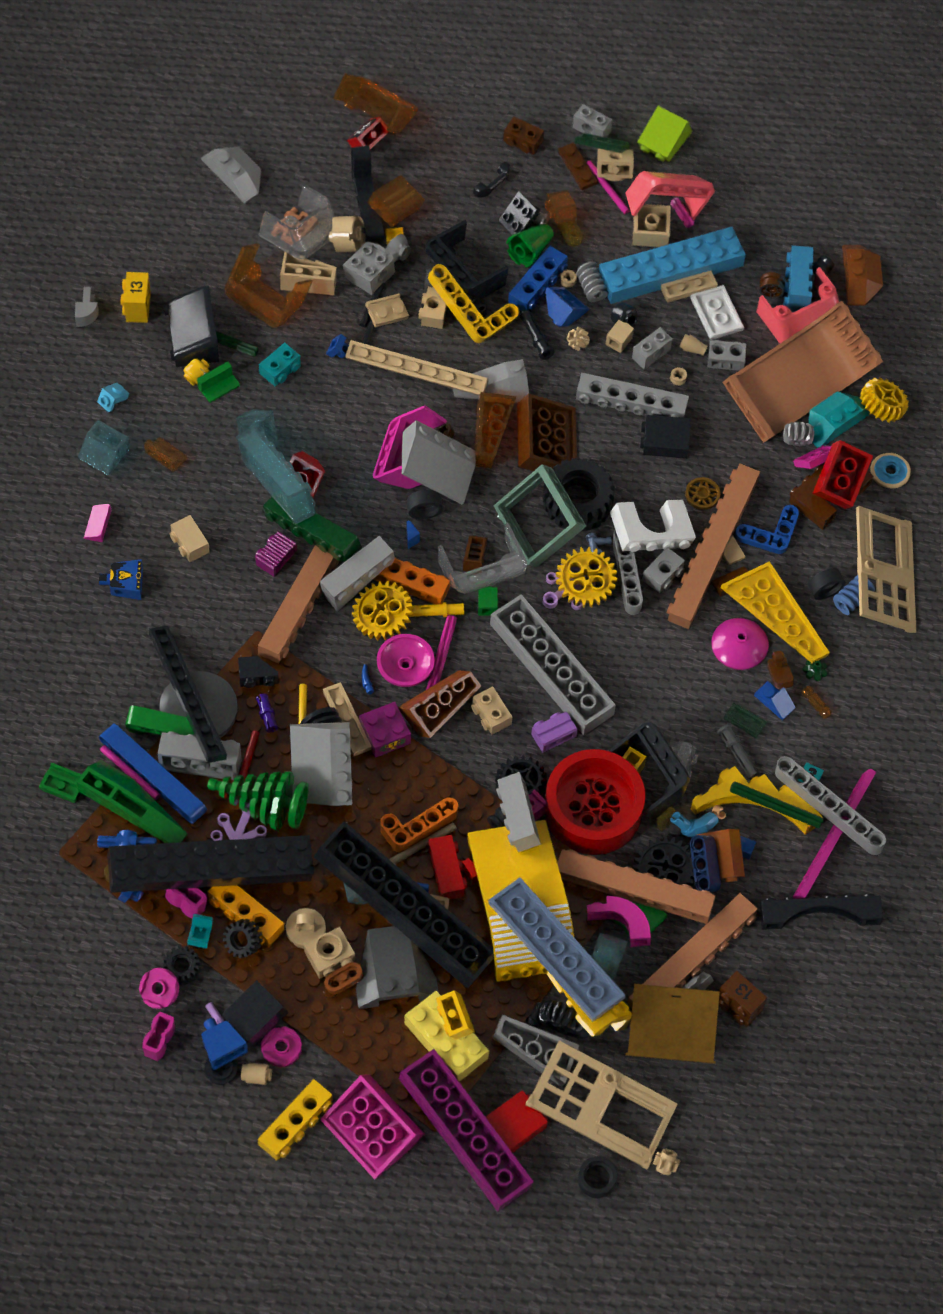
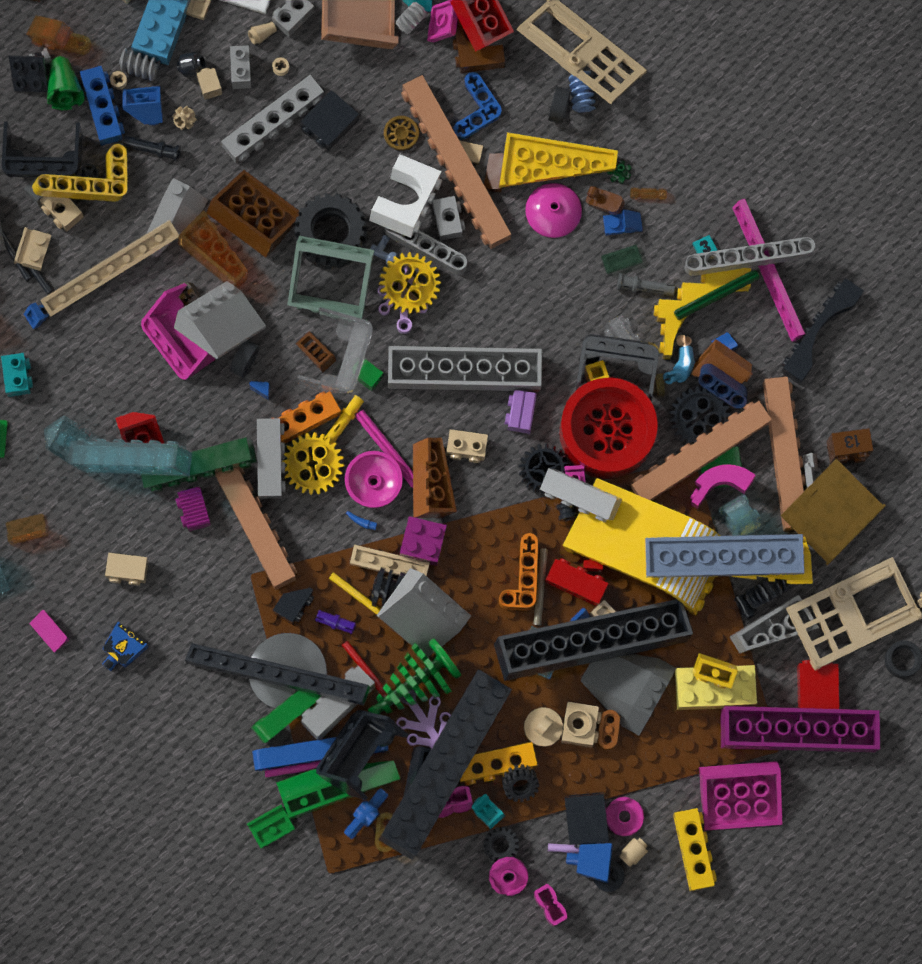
camera: 55 degrees left, 15 degrees up
(169, 791) = (354, 748): none -> black windscreen

